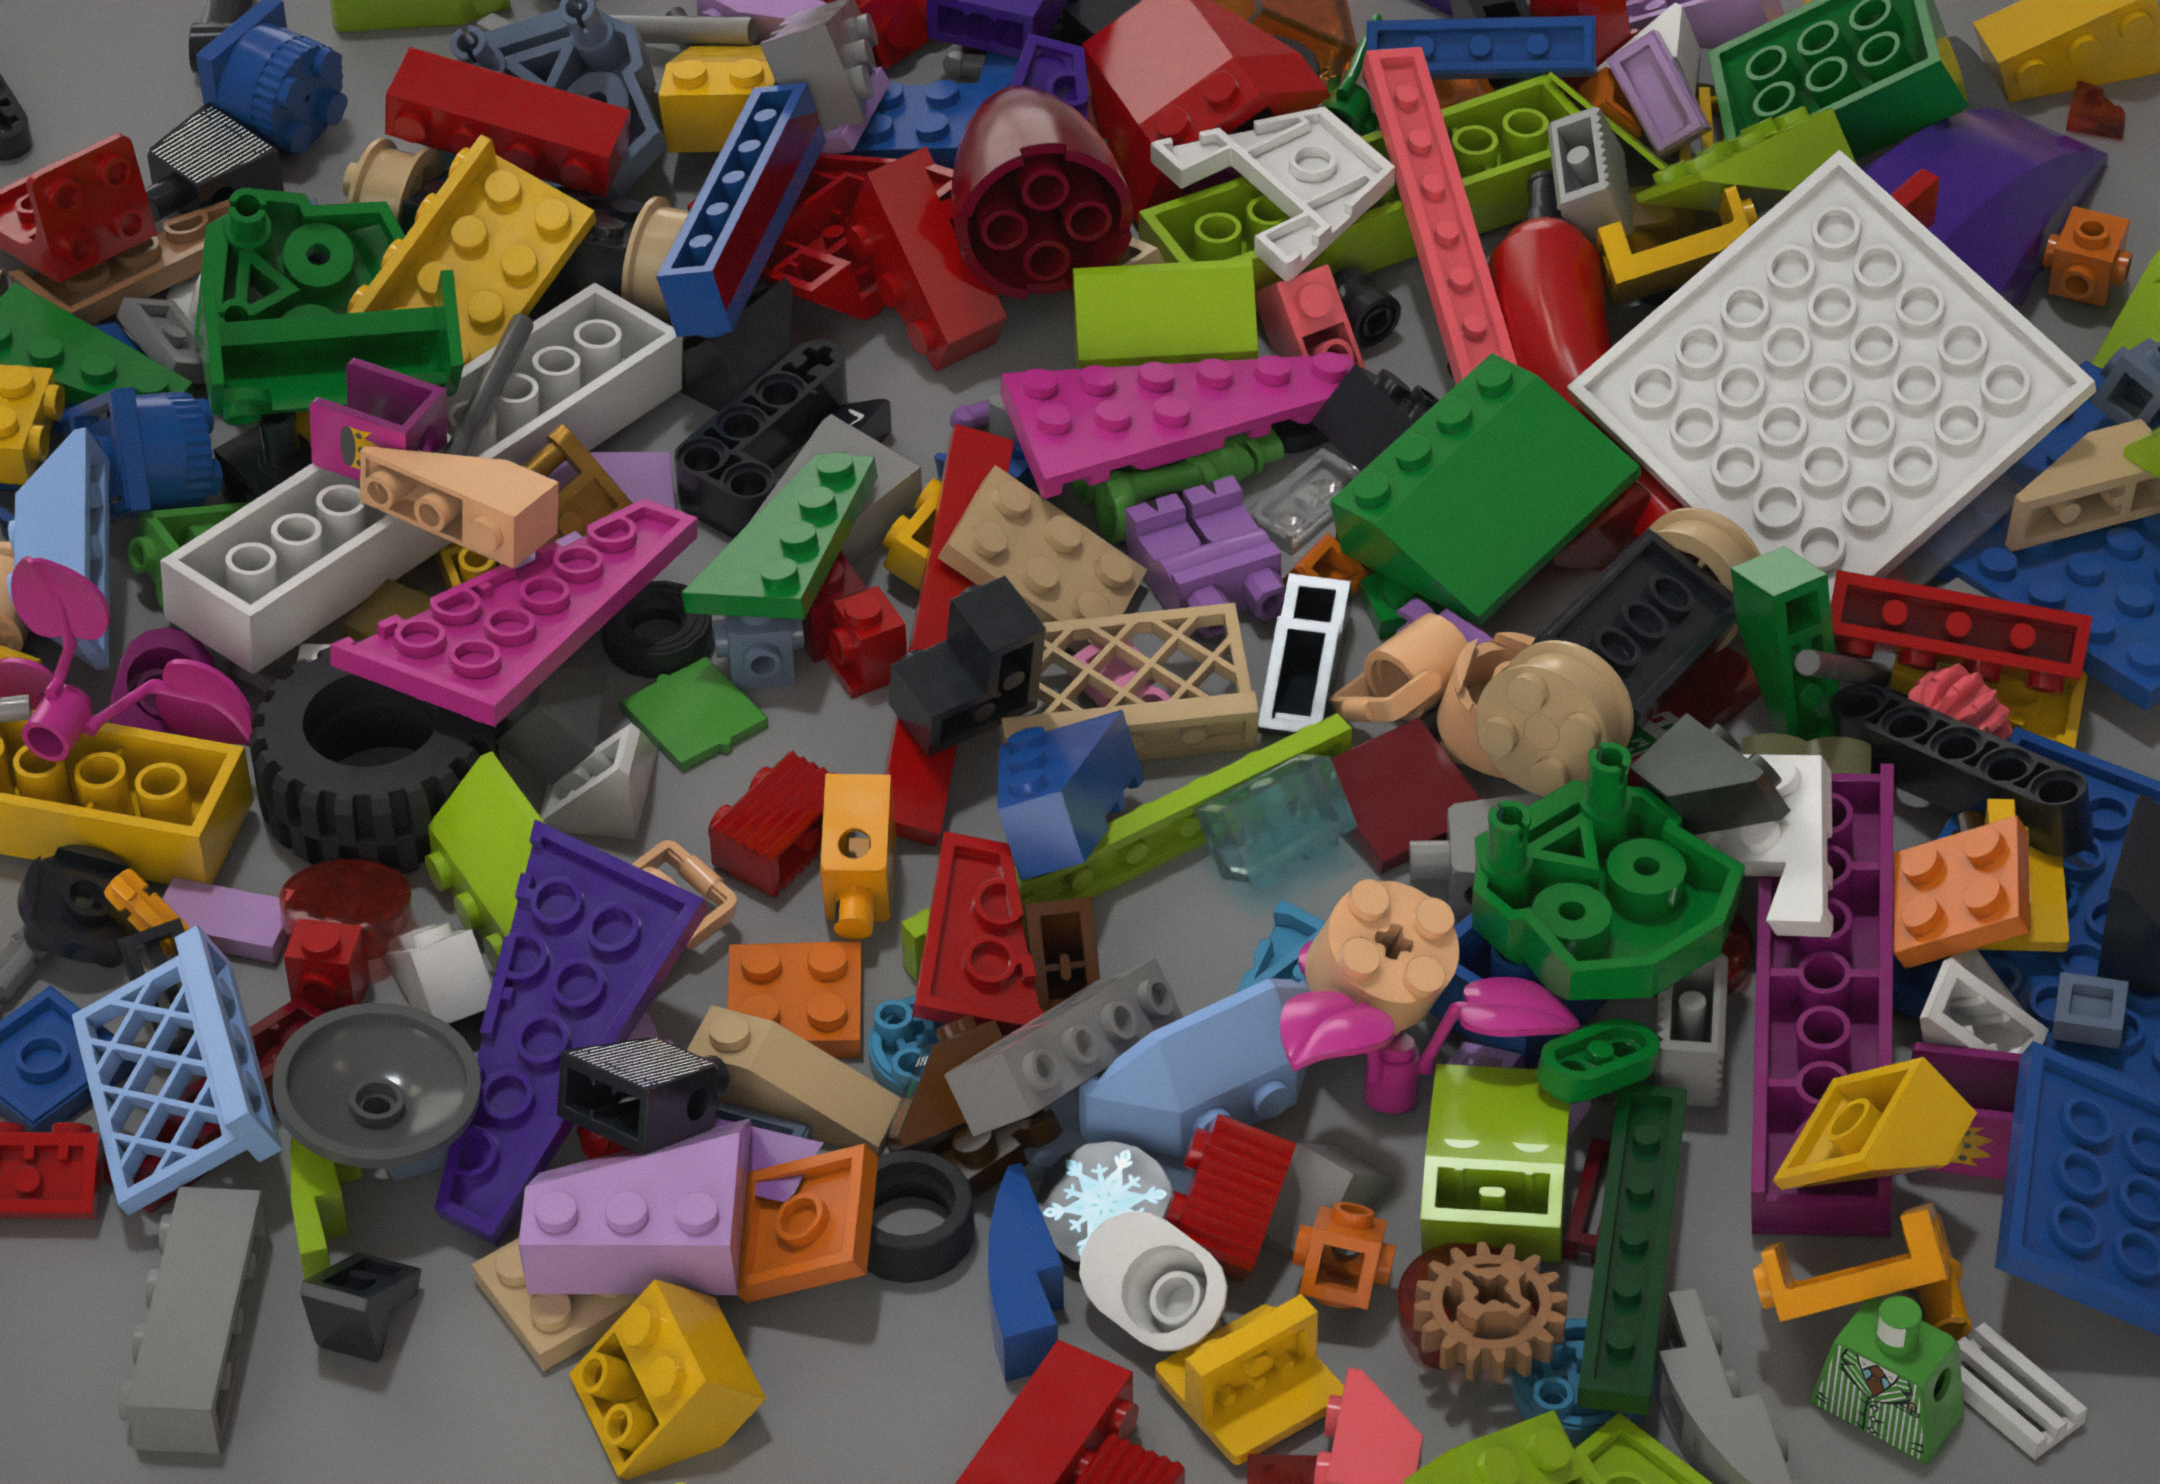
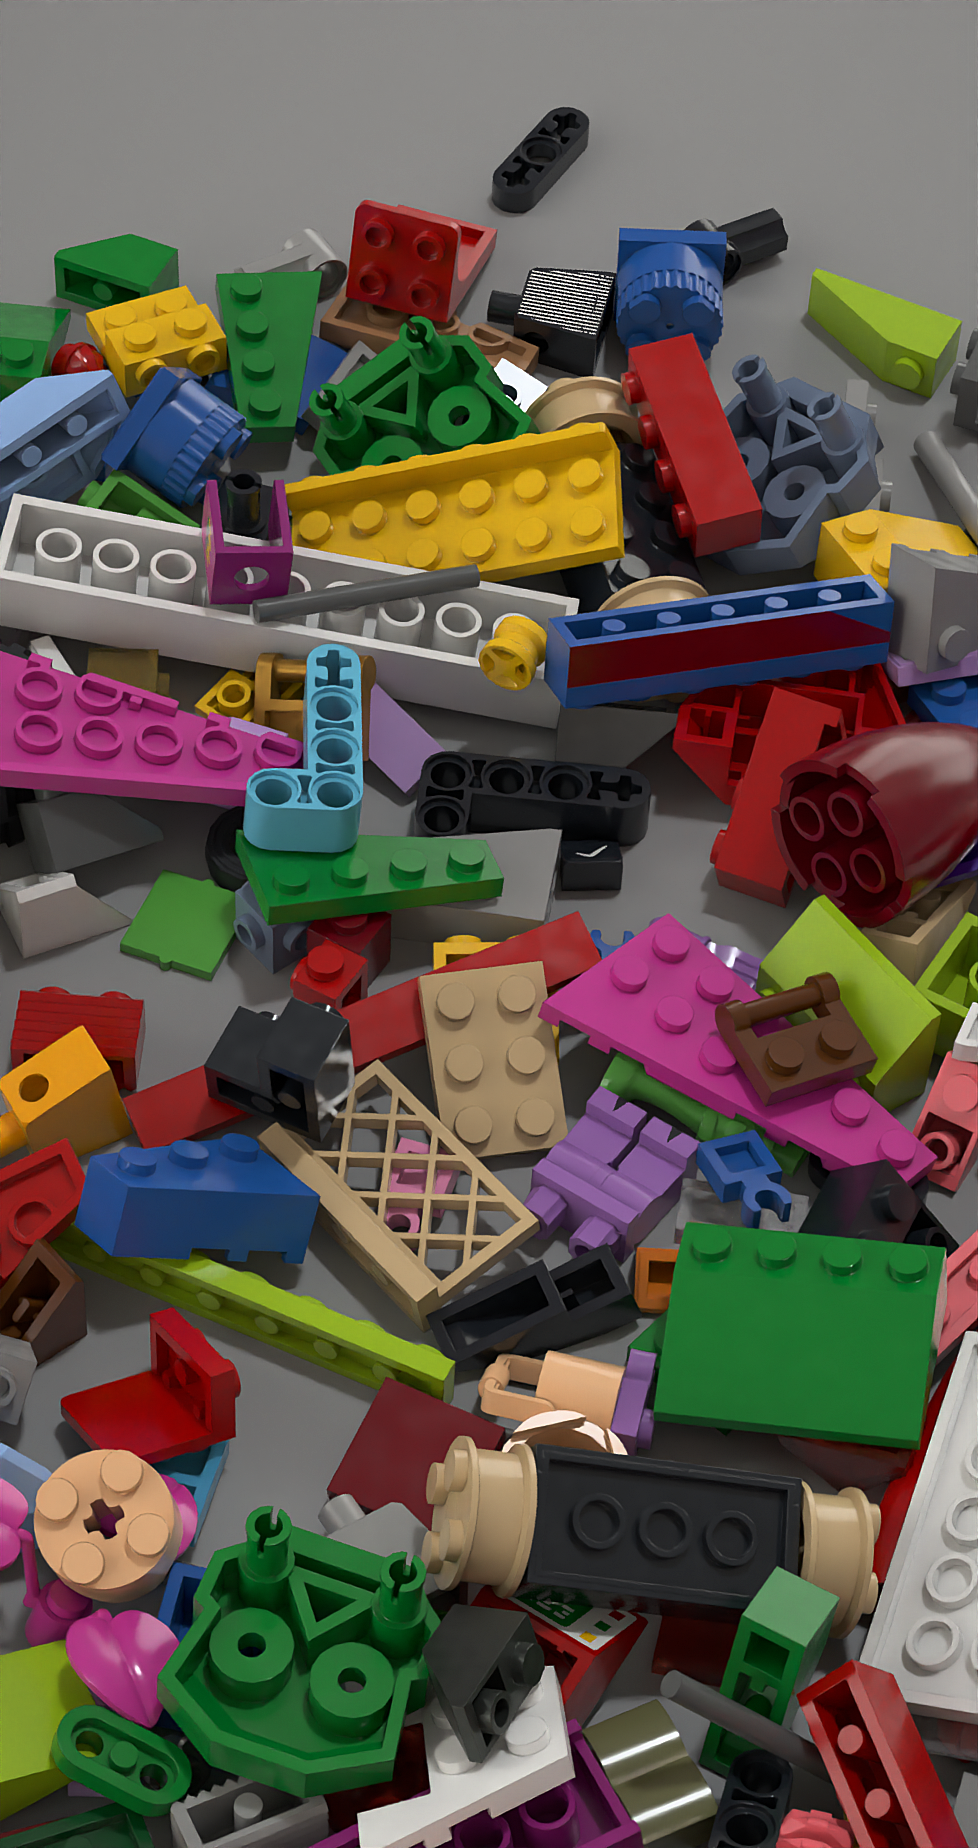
camera: 55 degrees right, 5 degrees up
(292, 360) = (268, 438): green windscreen -> none
(464, 499) = (213, 640): light nougat slope -> none
(643, 333) = (514, 653): none -> yellow wheel
(701, 499) = (323, 801): none -> medium azure beam
(1216, 358) = (800, 1056): none -> reddish brown plate
(1229, 910) = (167, 1410): none -> red bracket
(1276, 820) = (304, 1379): clear light blue brick -> none
(1285, 462) = (745, 1171): none -> blue plate

